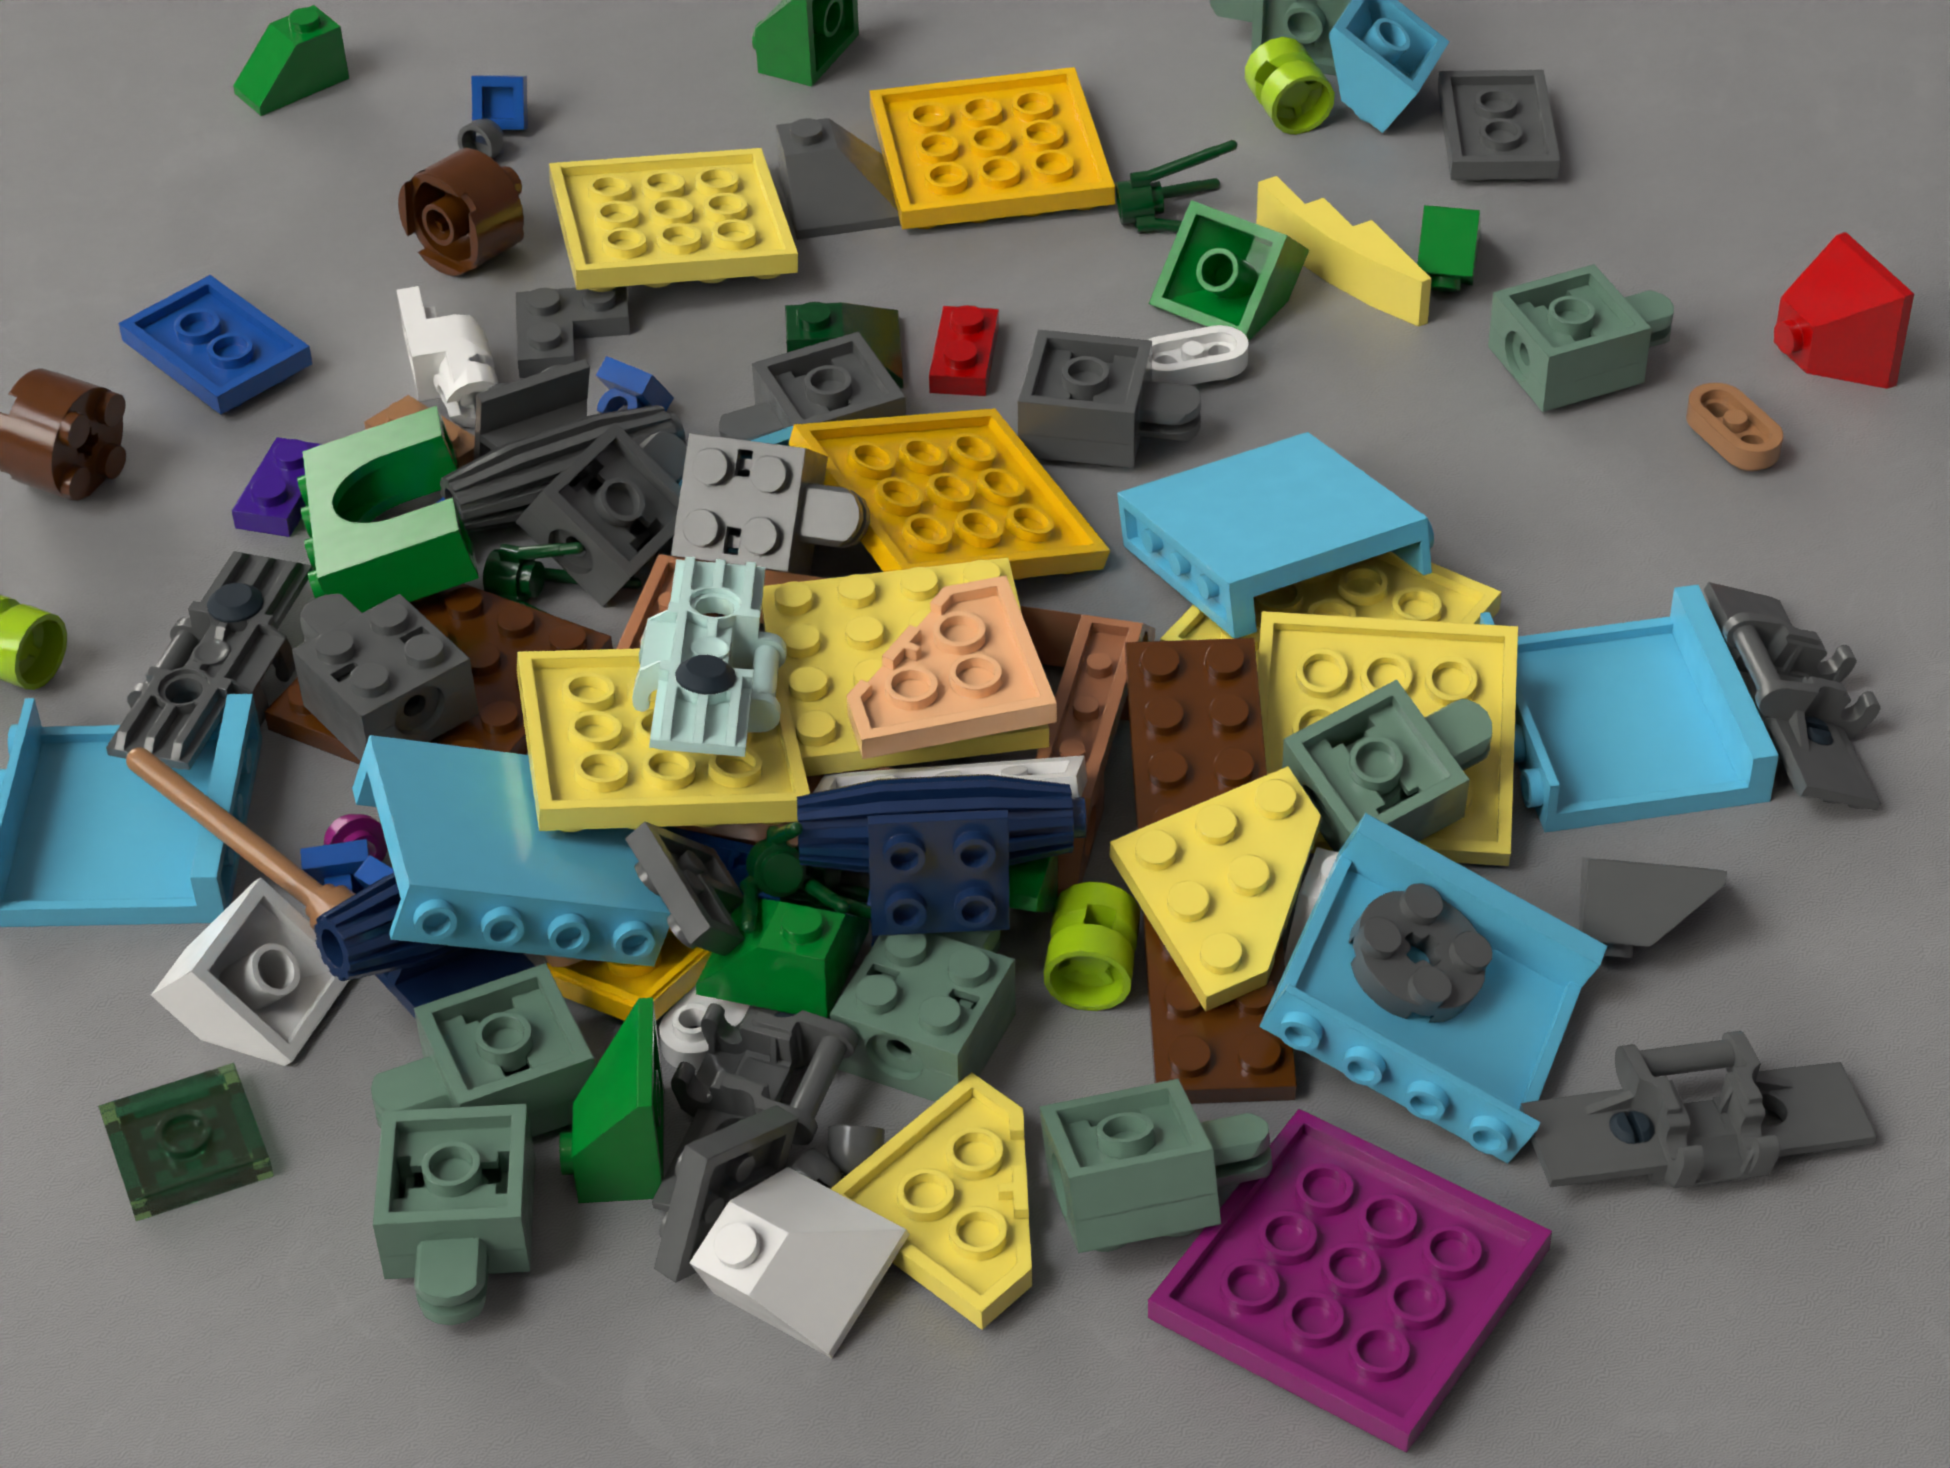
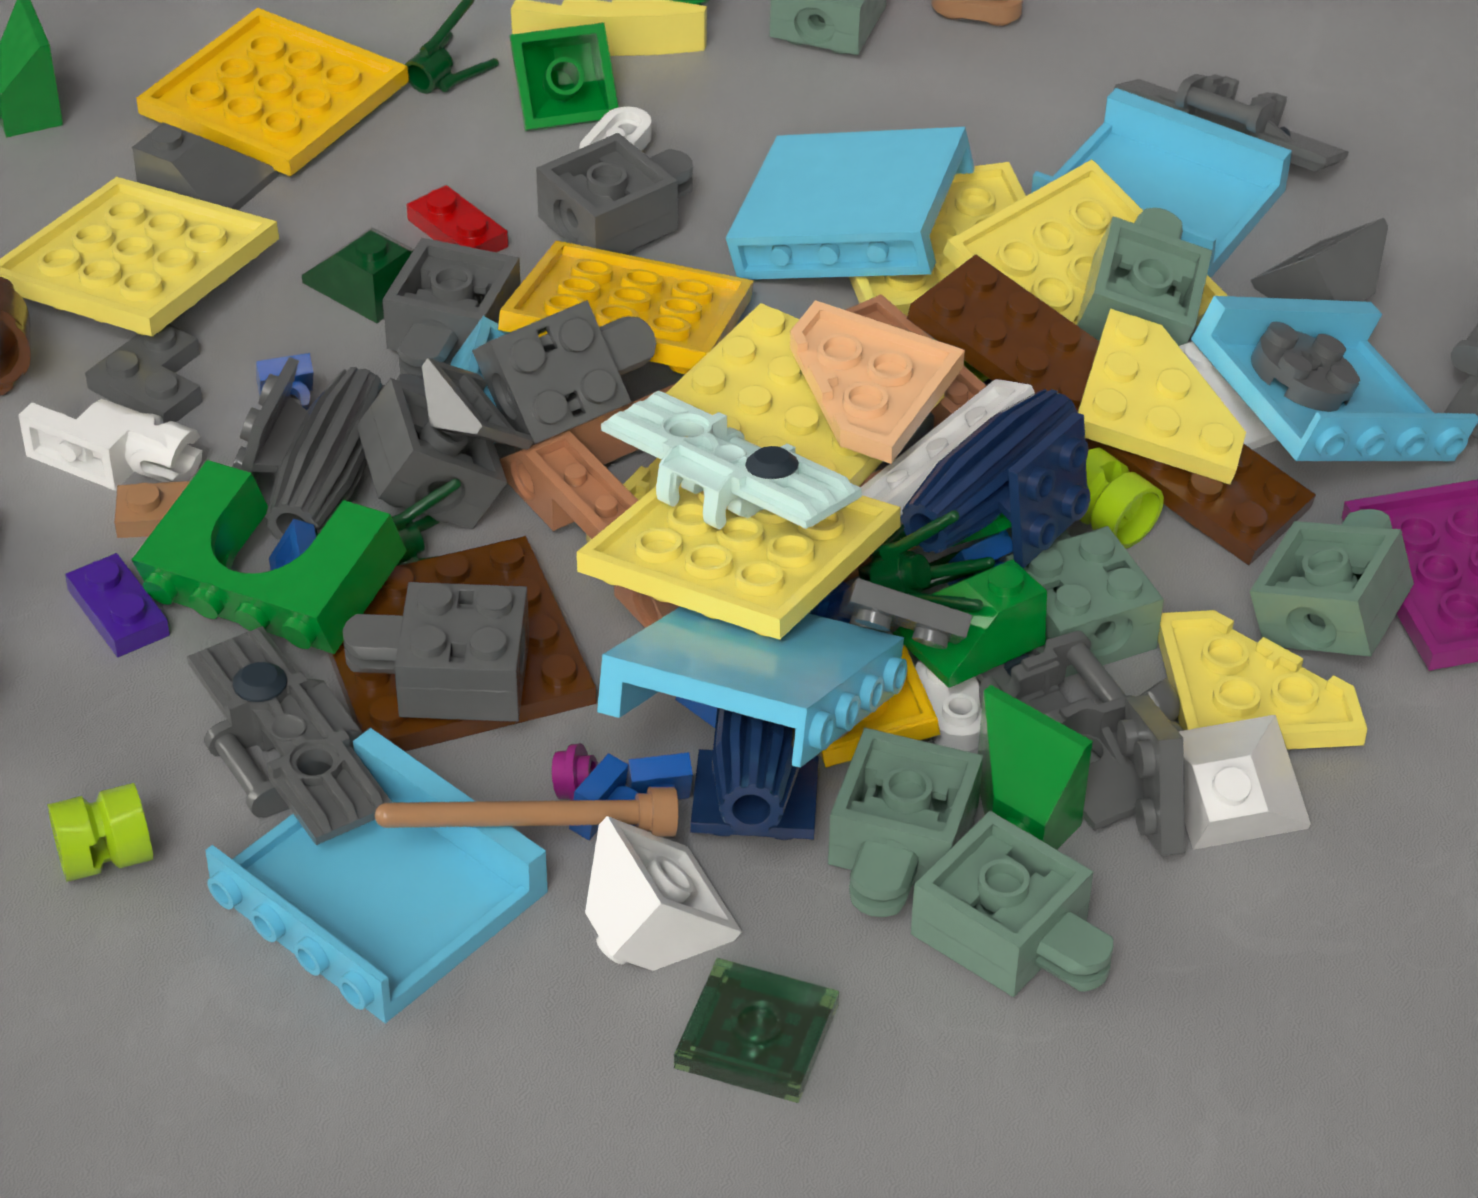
camera: 50 degrees left, 0 degrees up
(642, 487) = (461, 406): none -> dark grey slope

